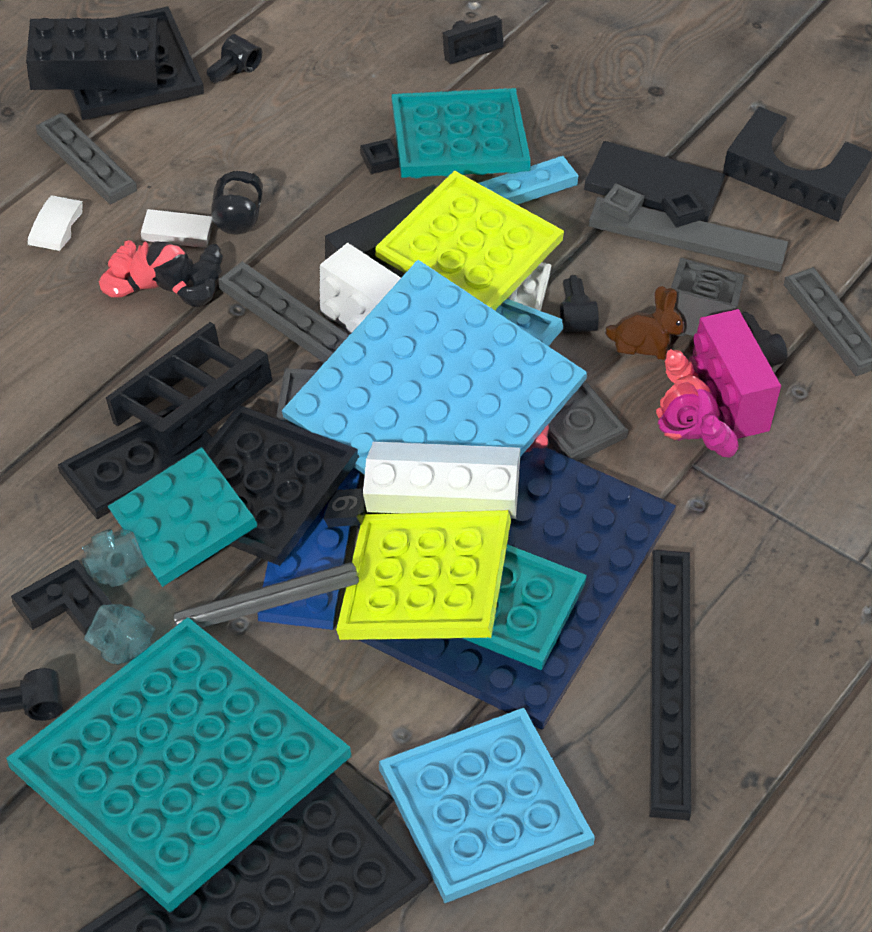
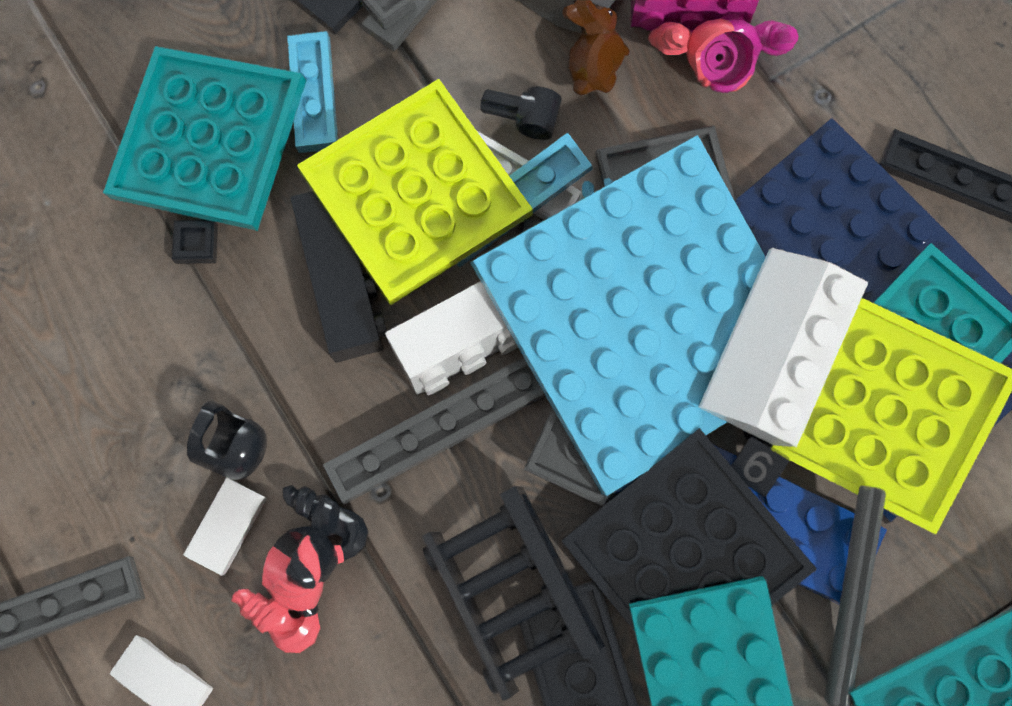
camera: 65 degrees left, 25 degrees up
(472, 39) = (44, 66): black tile -> none

